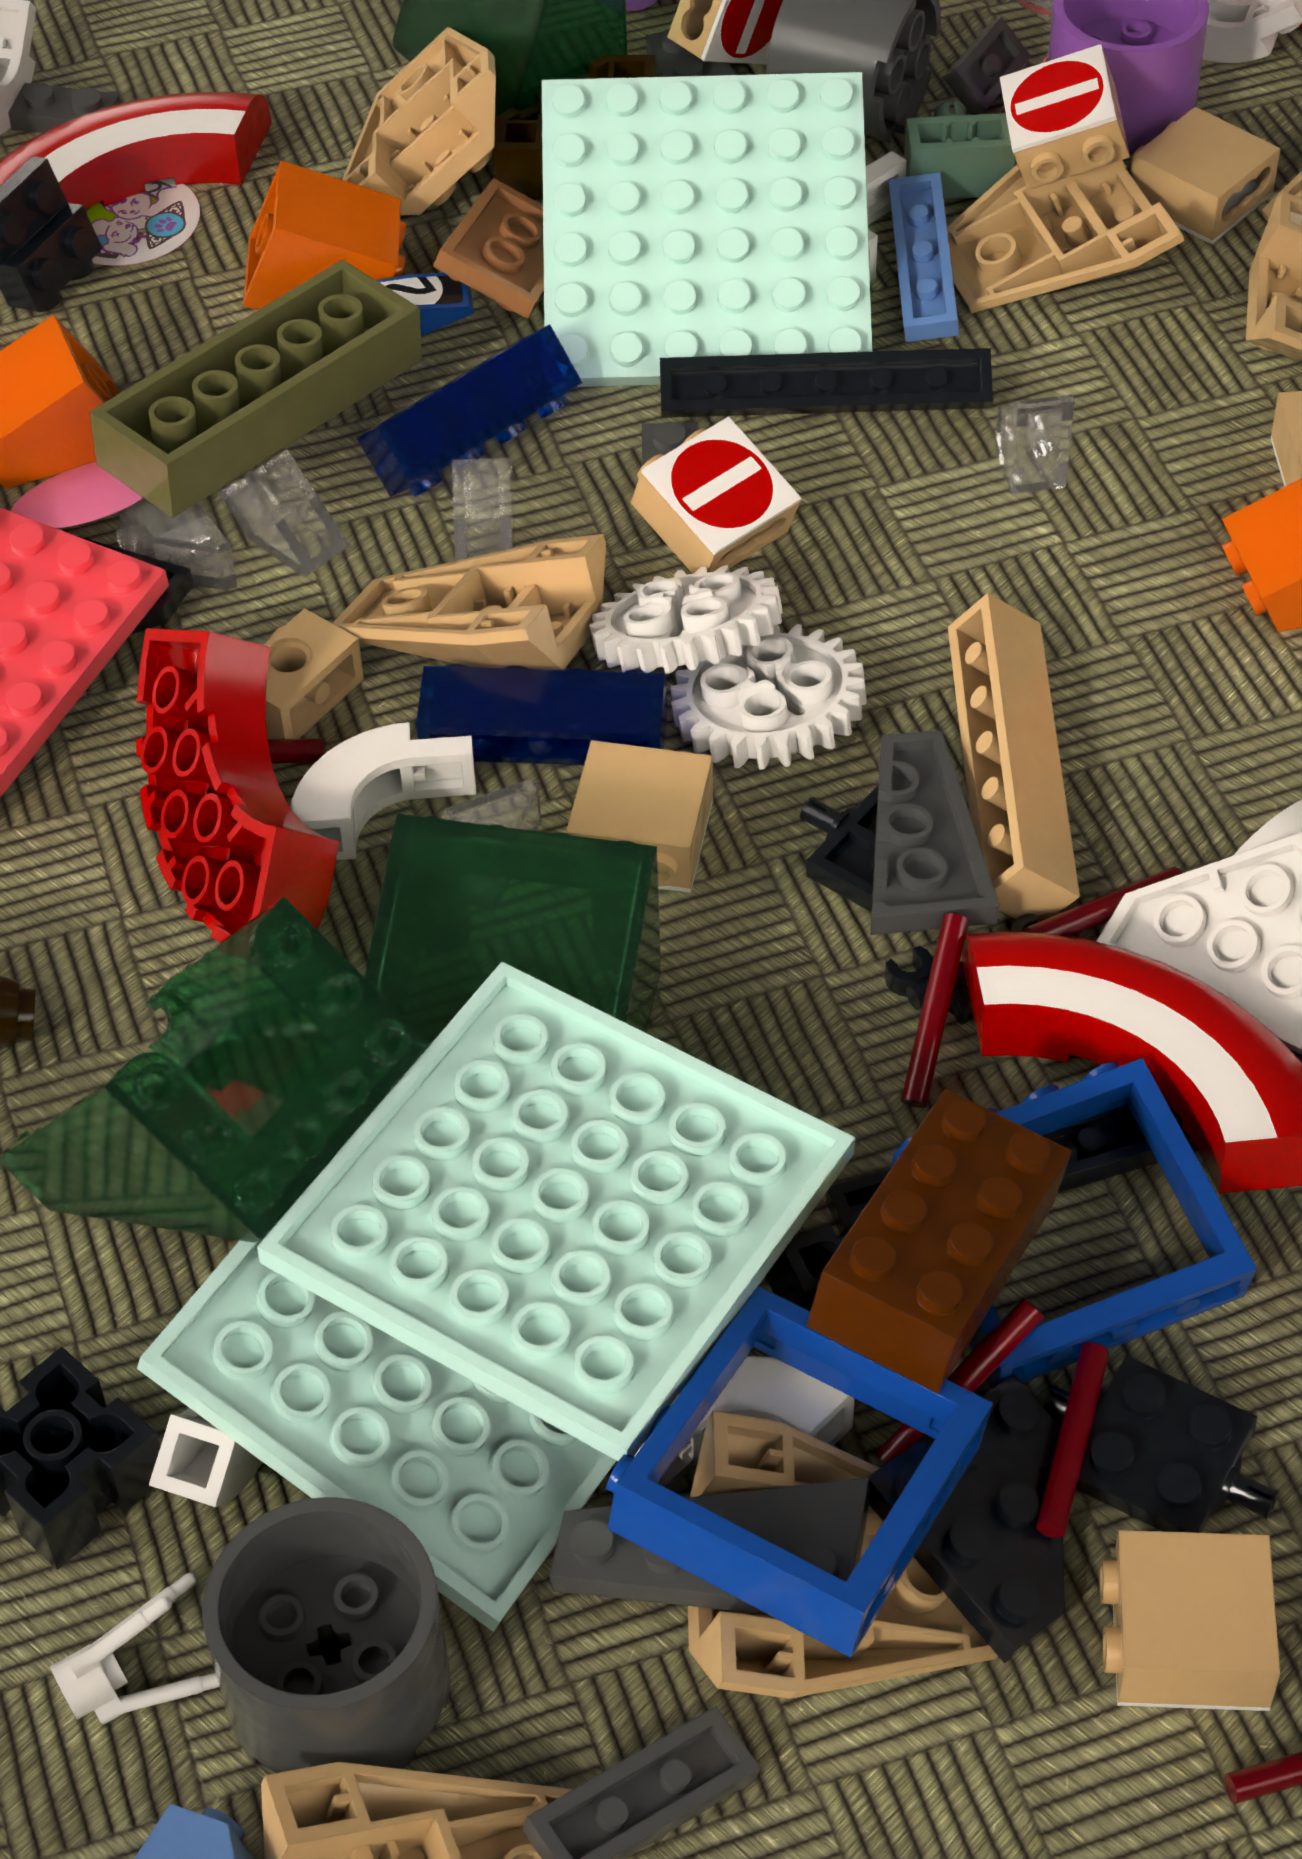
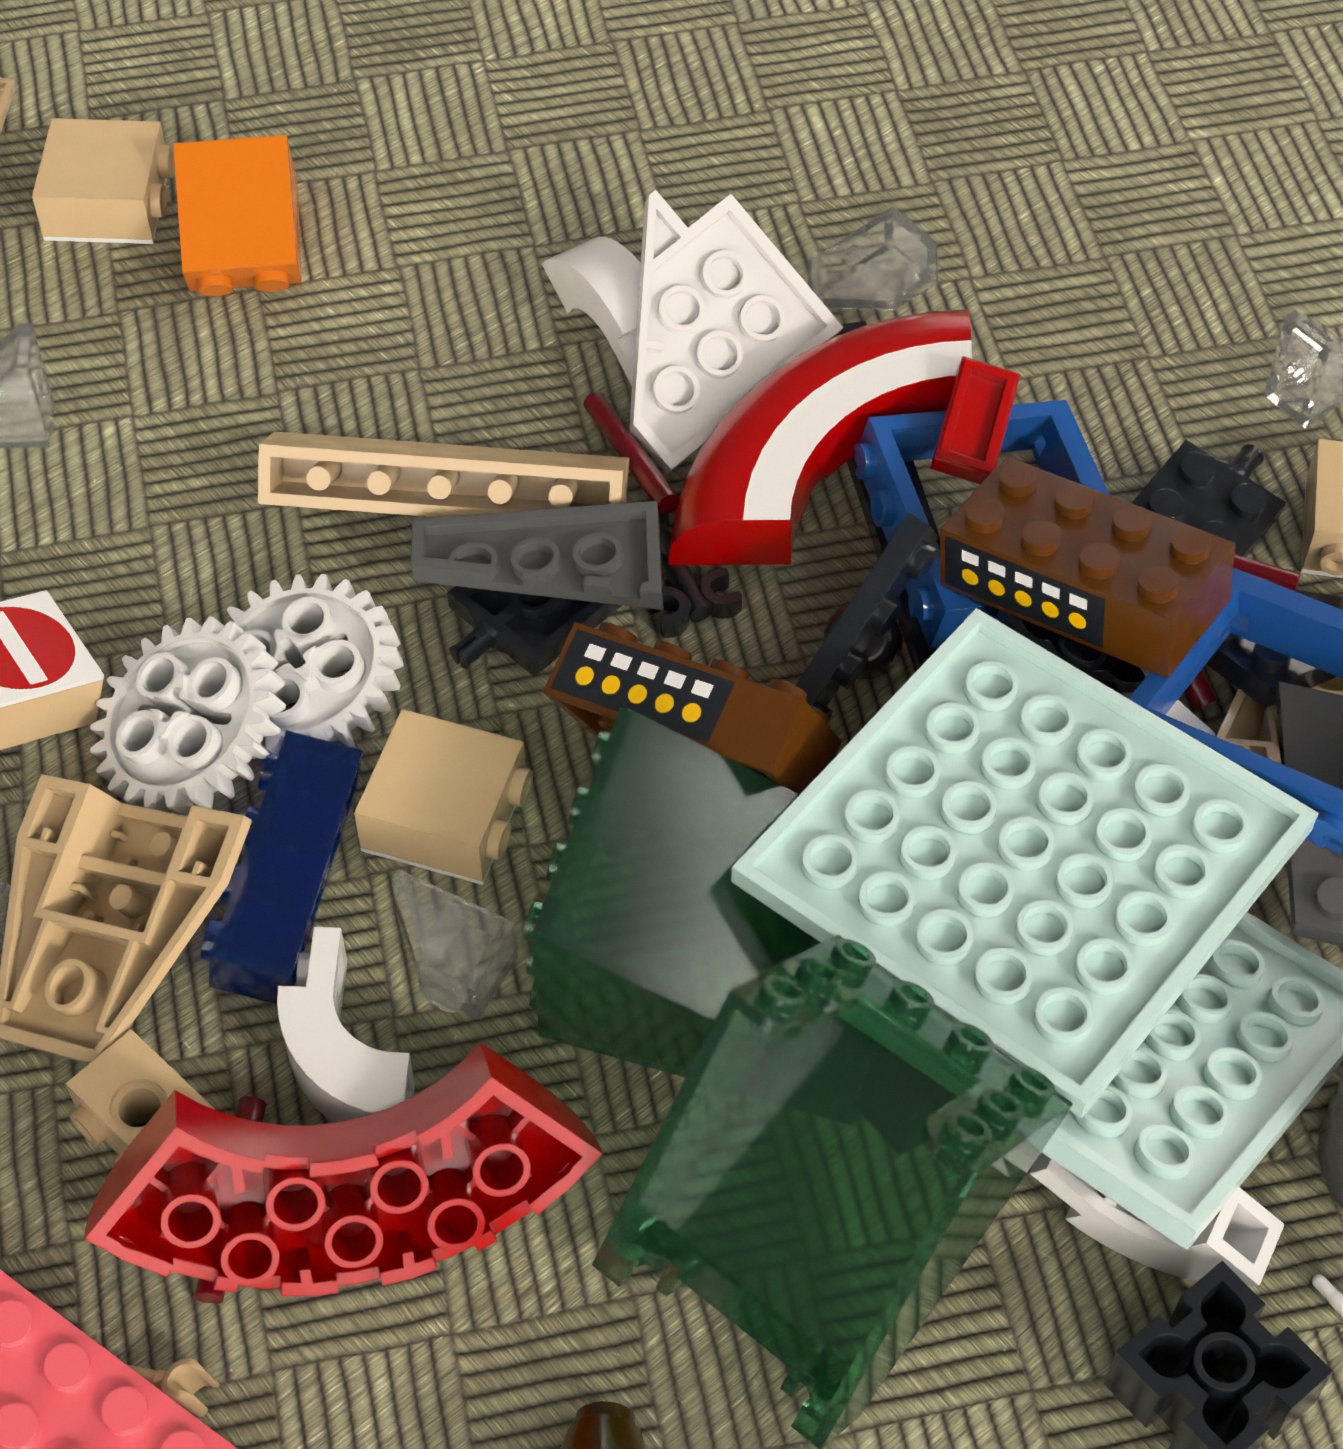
camera: 85 degrees left, 5 degrees up
(64, 743) = (181, 1383): none -> tan hand
(725, 948) = (715, 705): none -> brick
(871, 1088) = (865, 633): none -> black plate
(935, 1010) = (744, 582): dark red bar -> none
(1157, 1150) = (975, 420): none -> red tile

